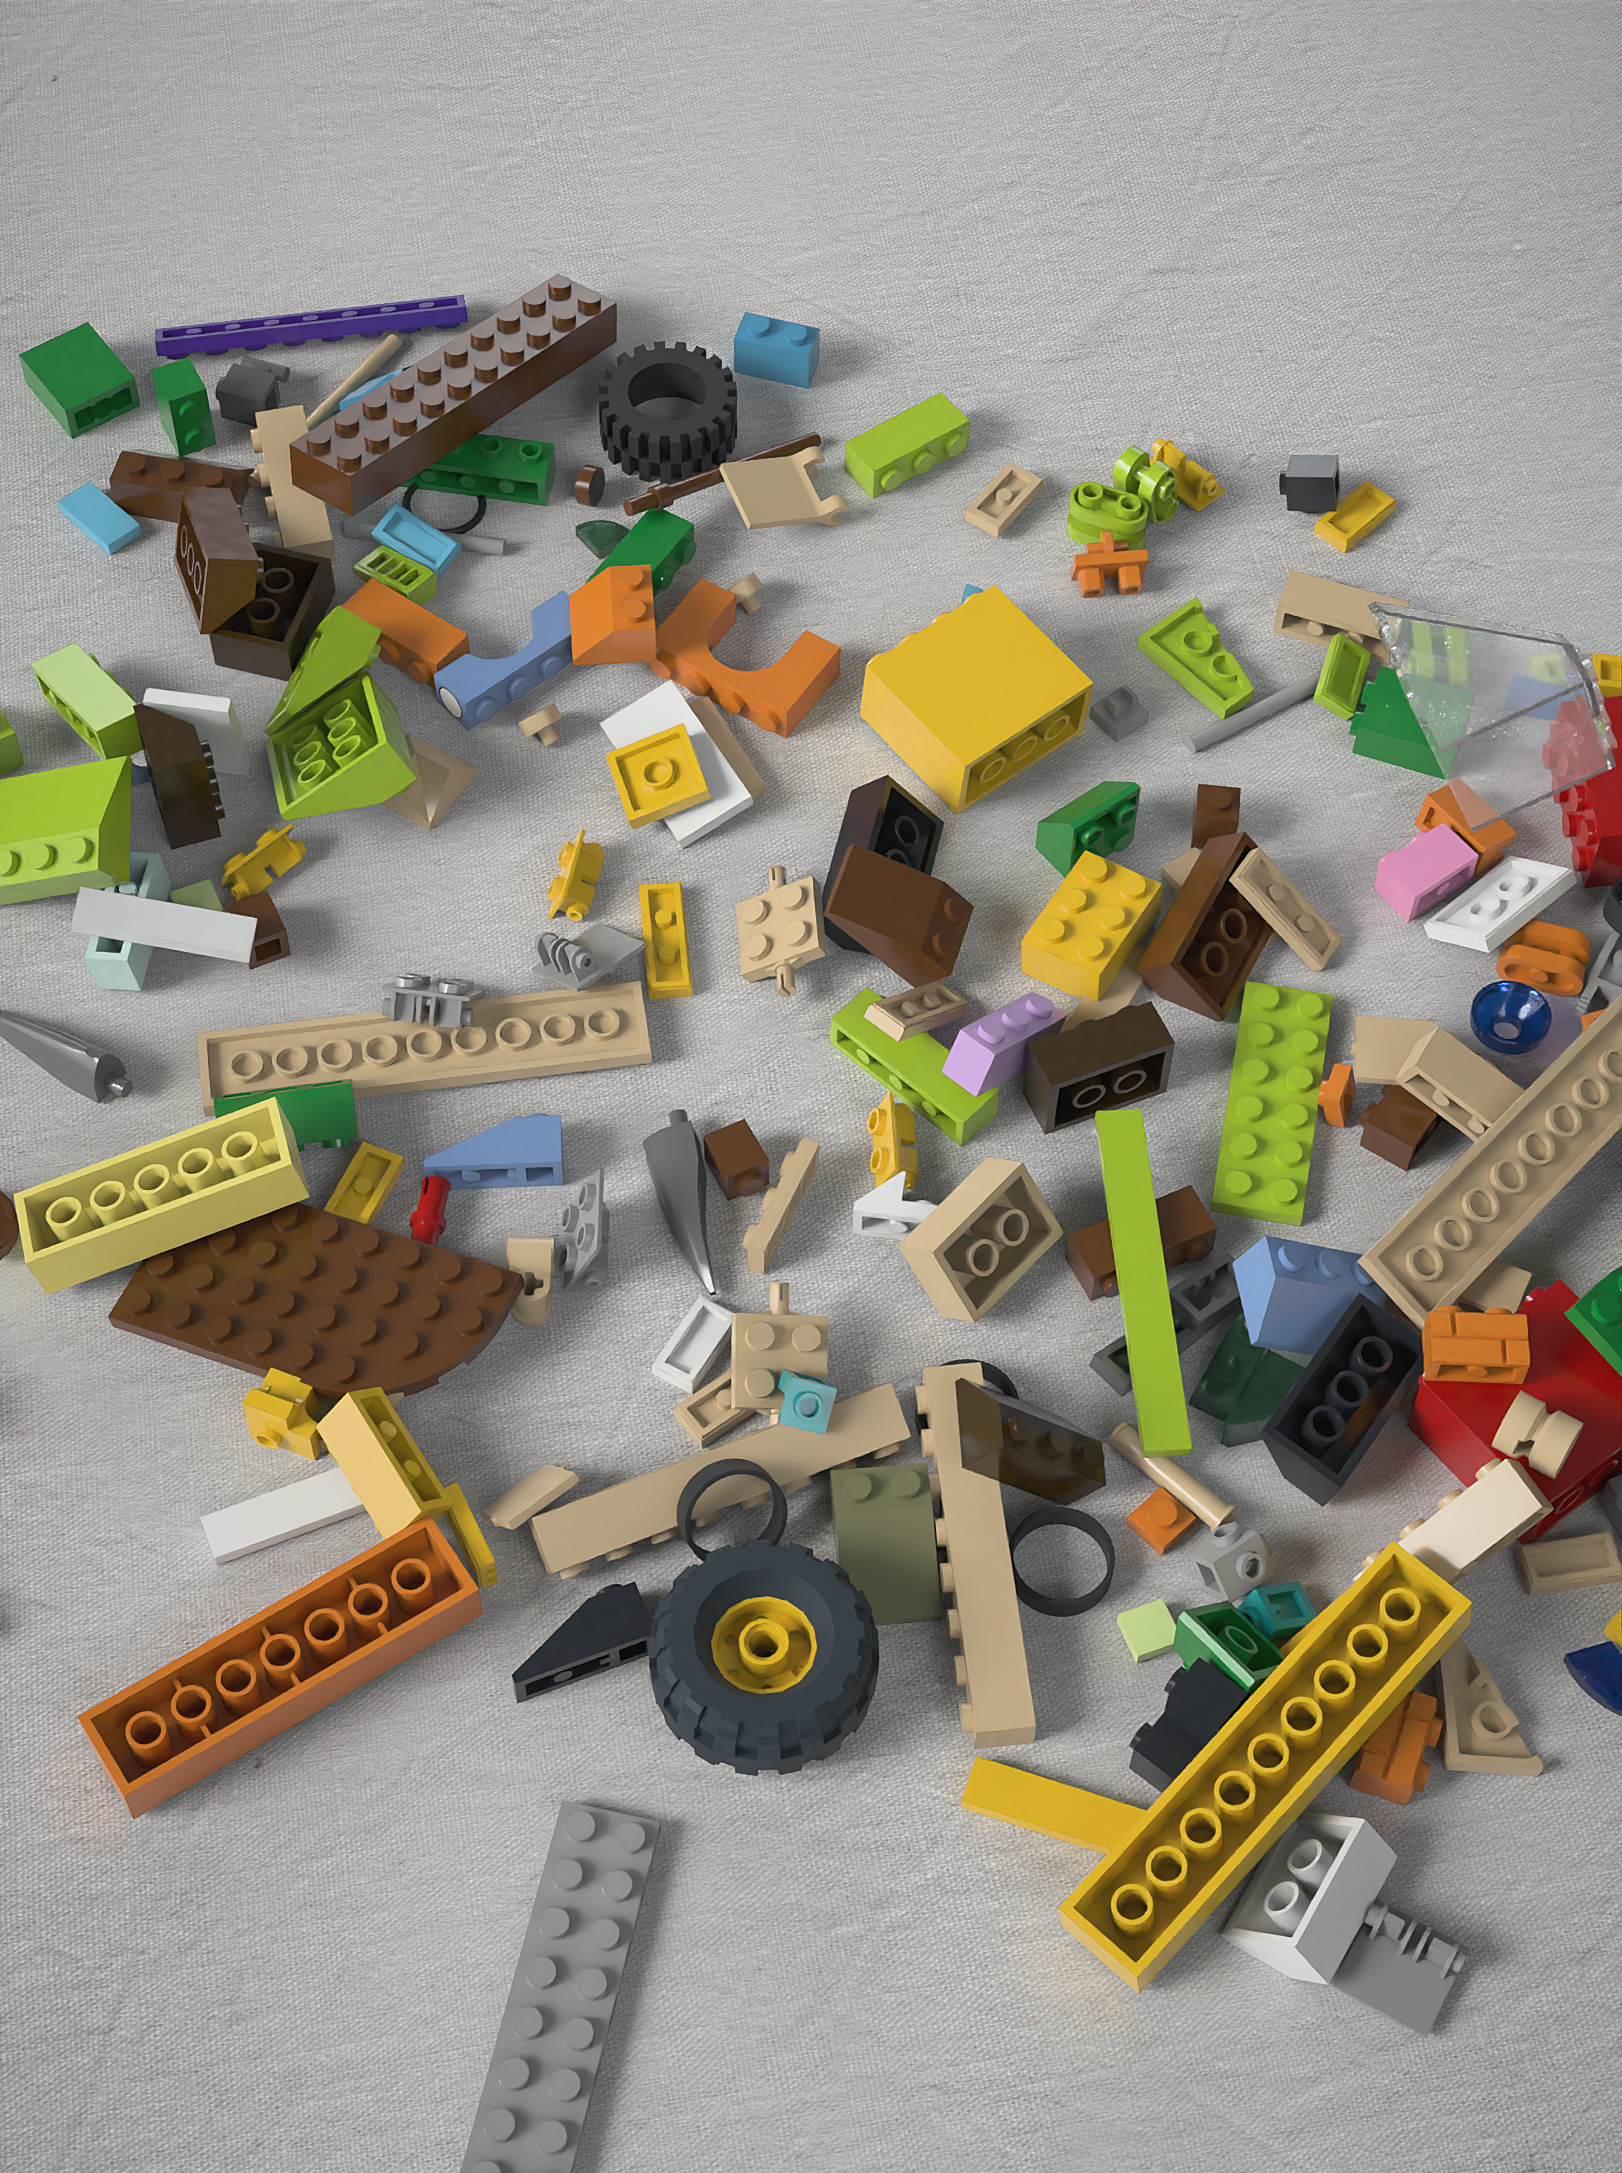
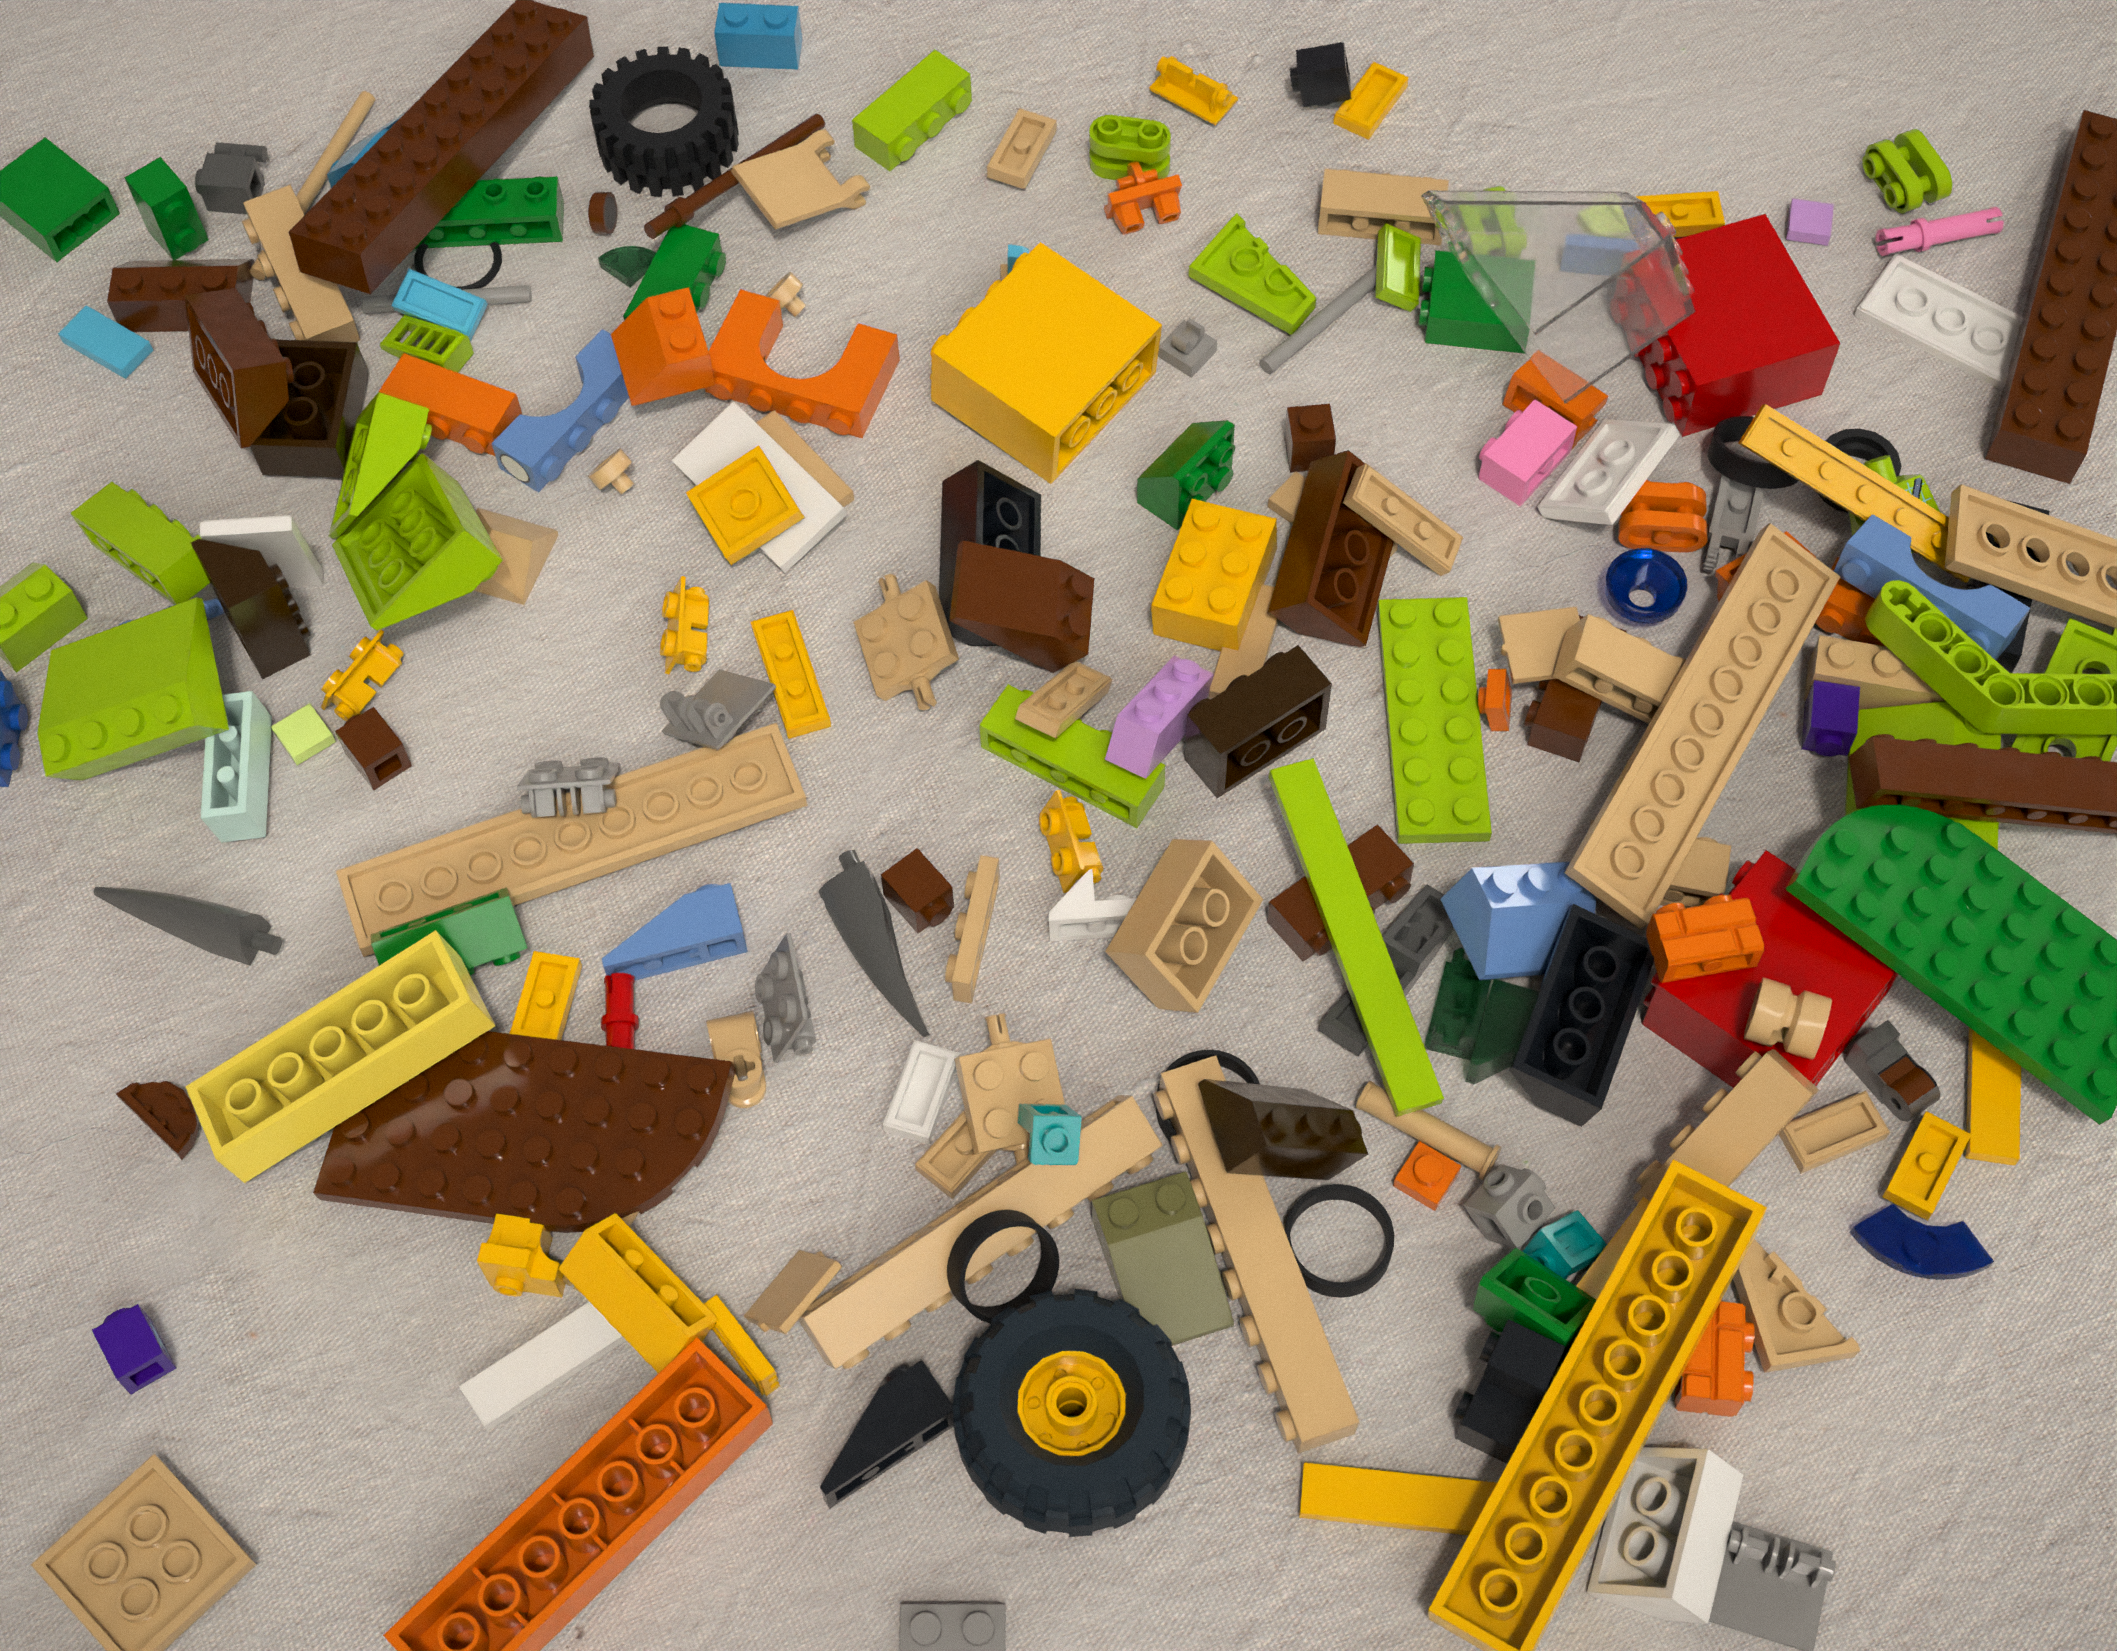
camera: 10 degrees left, 5 degrees up
(164, 924) = (275, 766): white tile -> none
(297, 328) = (266, 101): dark purple plate -> none
(1148, 1630) = (1442, 1292): yellowish green tile -> none
(1151, 482) = (1169, 106): lime brick -> none

